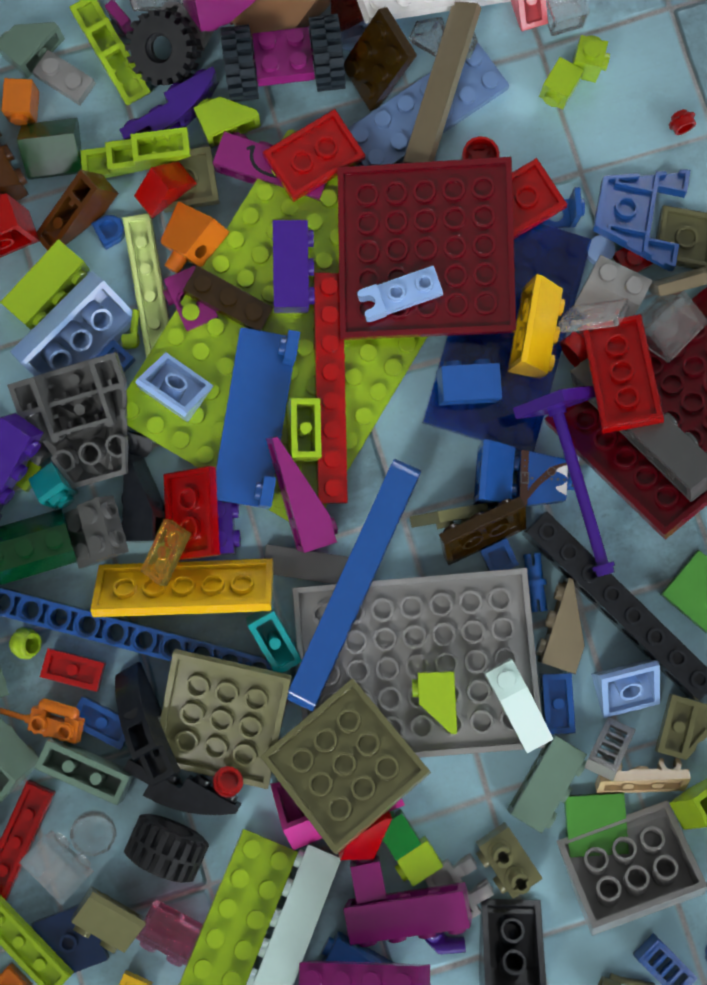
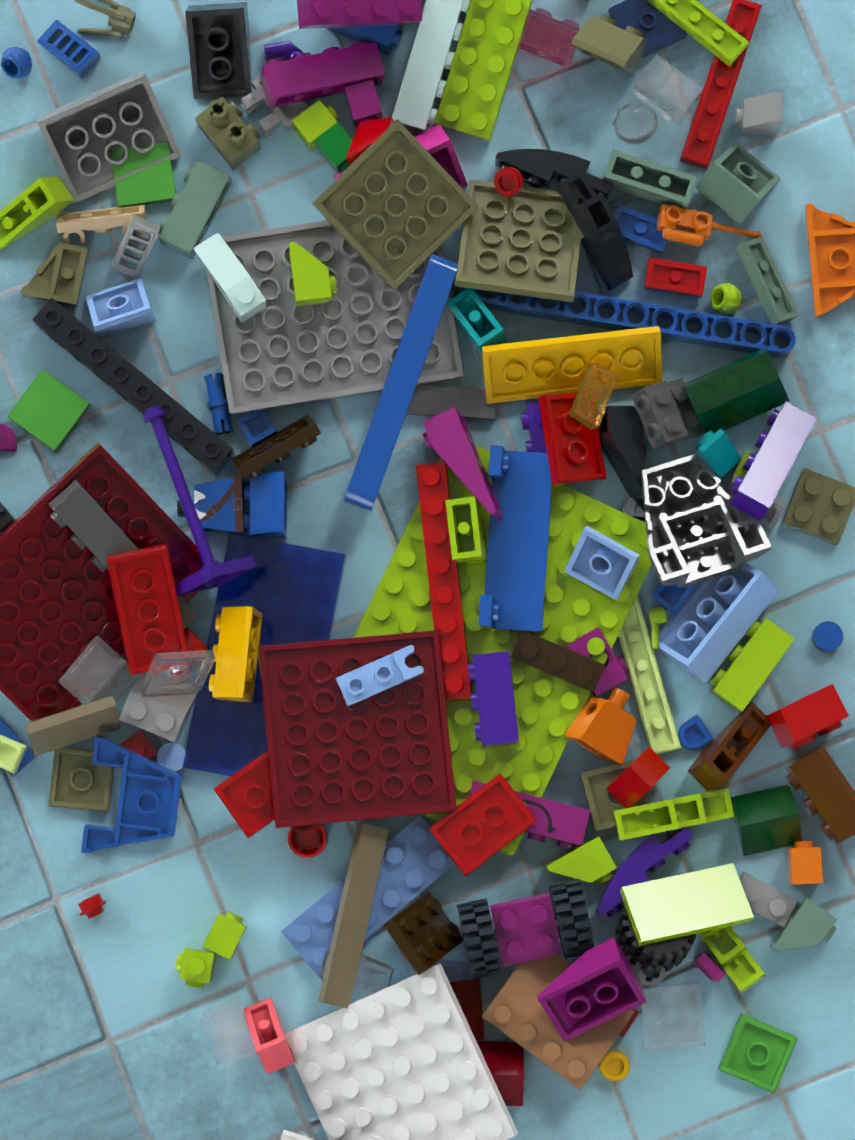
camera: 175 degrees right, 0 degrees up
(132, 66) = (686, 904): none -> tile
(166, 848) = (561, 114): black tyre -> none
(447, 517) = (311, 460): olive wing -> none
(469, 383) = (302, 592): blue brick -> none
(558, 702) = (188, 286): blue plate -> none
(564, 635) = (187, 348): dark tan slope -> none
(572, 213) = (204, 797): blue bracket -> none

